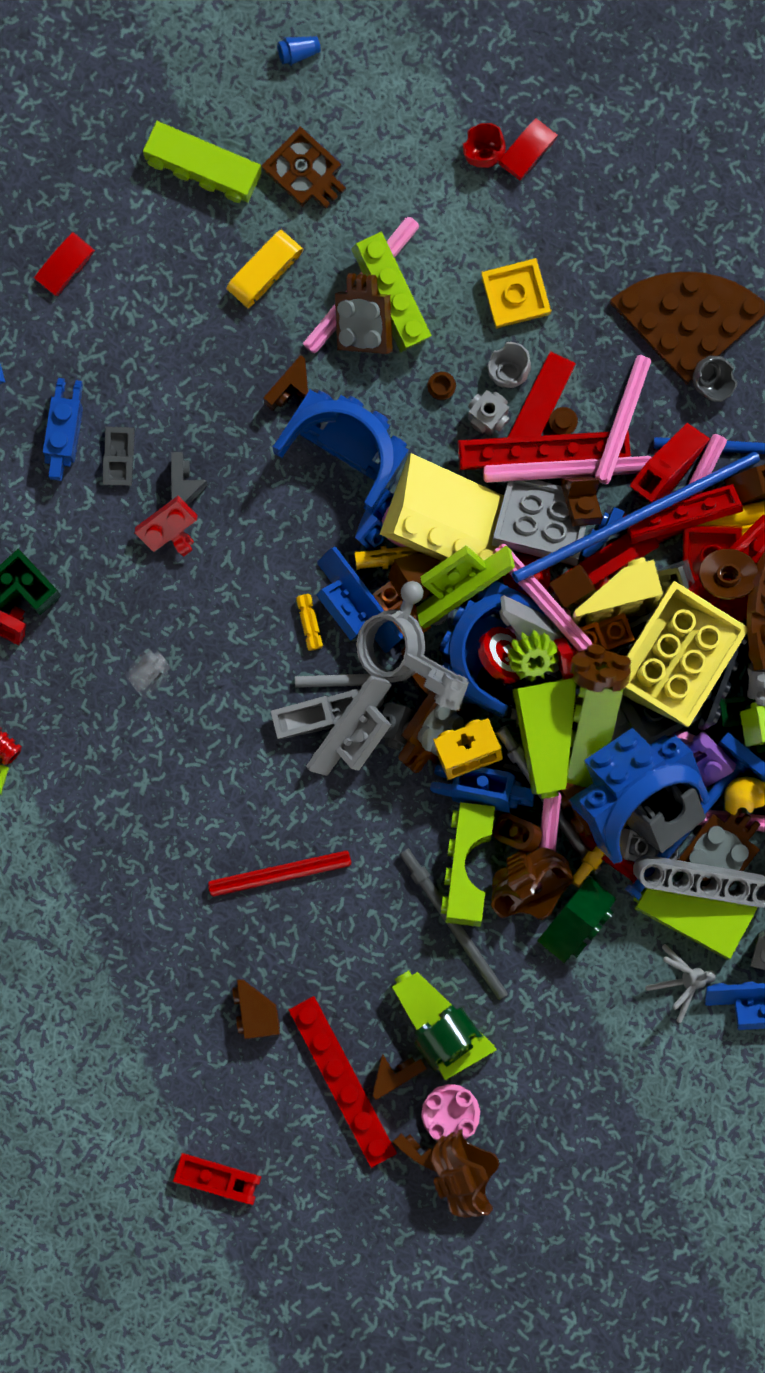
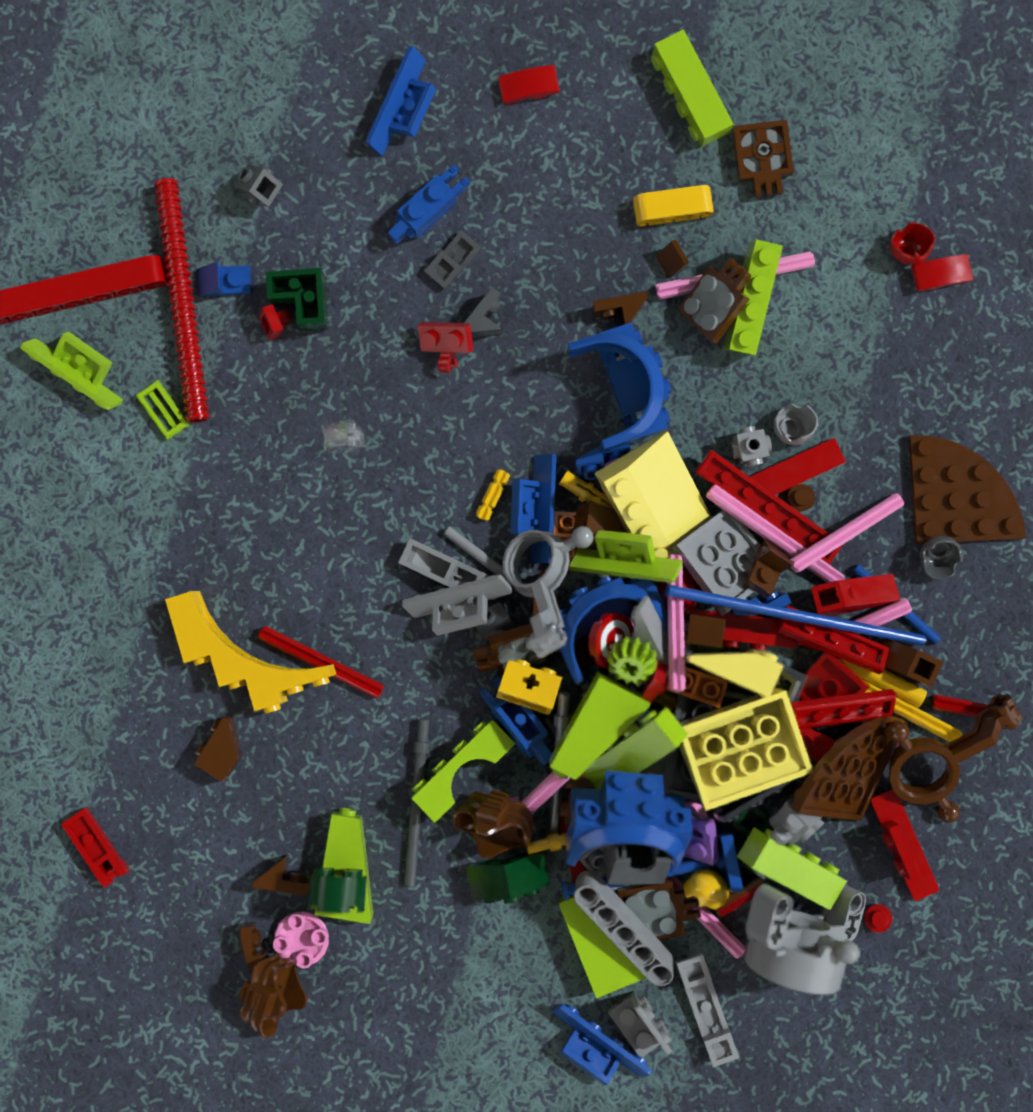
camera: 35 degrees right, 5 degrees up
(167, 933) = (202, 639): none -> yellow arch
(297, 48) = (832, 60): blue cone -> none
(299, 312) = (672, 259): none -> reddish brown slope
(342, 1081) = (243, 850): red plate -> none
(441, 386) = (732, 398): reddish brown plate -> none
(516, 293) = (844, 373): yellow plate -> none
(517, 832) = (516, 776): reddish brown plate -> none
(600, 669) = (683, 725): reddish brown plate -> none
(691, 979) = (556, 987): light grey plant -> none
(732, 565) = (838, 710): reddish brown dish -> none

